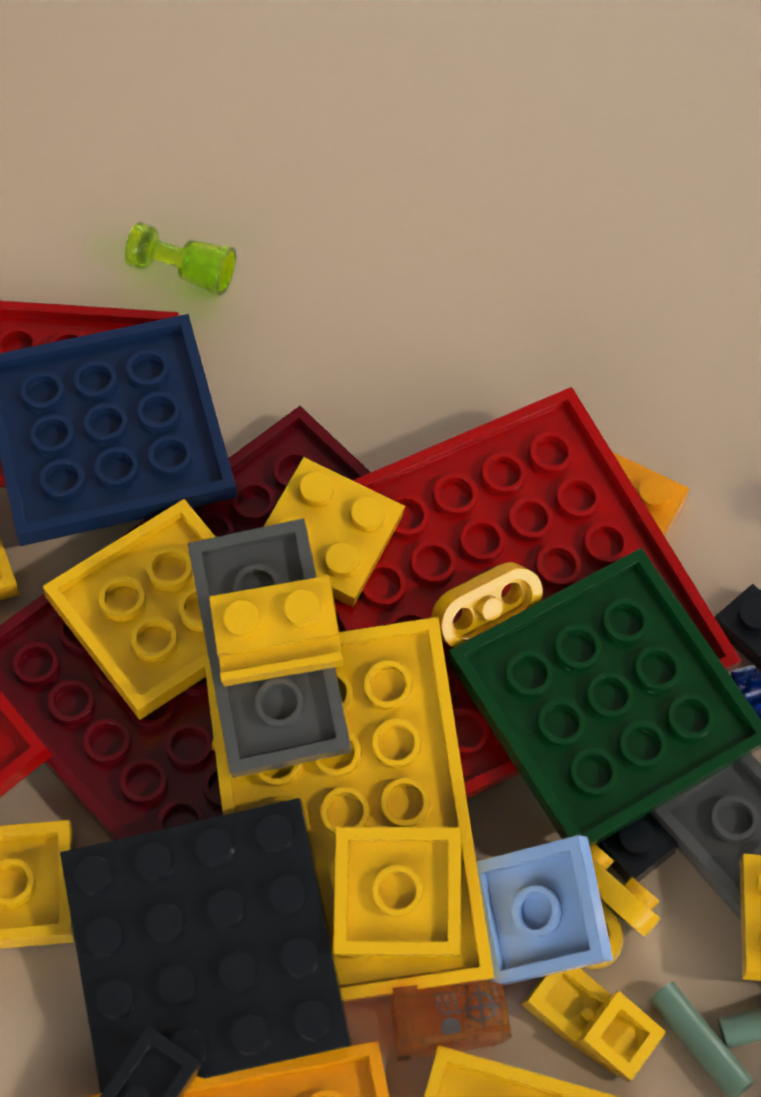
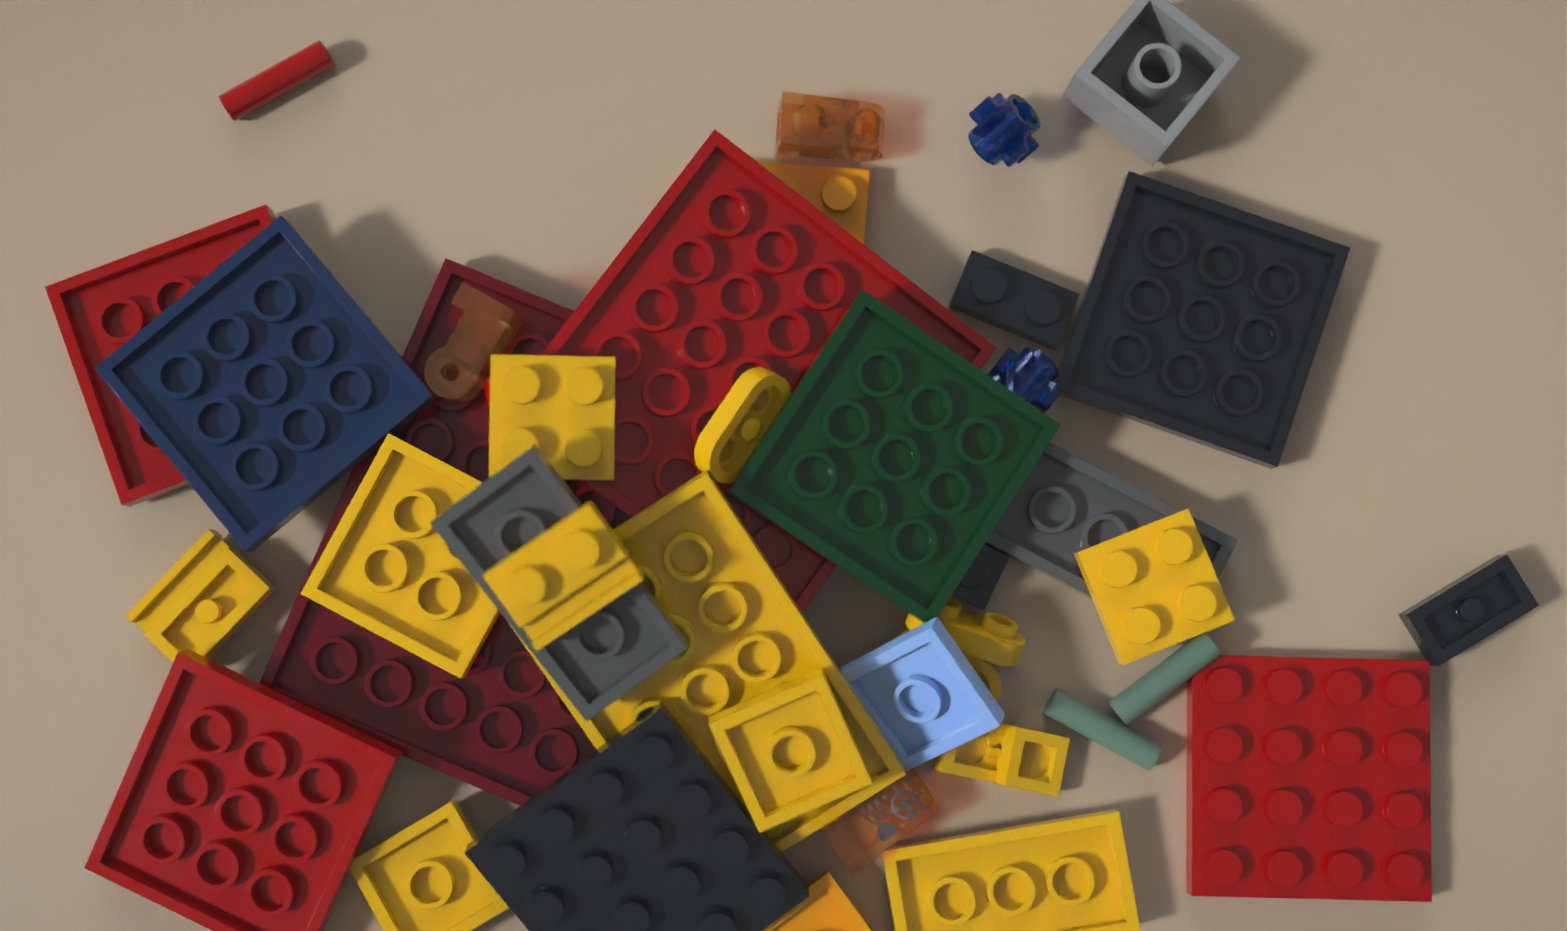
camera: 25 degrees left, 25 degrees up
(197, 262) = (253, 130): clear neon green piece -> none
(243, 239) = (277, 80): none -> red piece
(265, 474) = (464, 362): none -> clear orange leg
(668, 442) = (828, 128): none -> clear orange leg

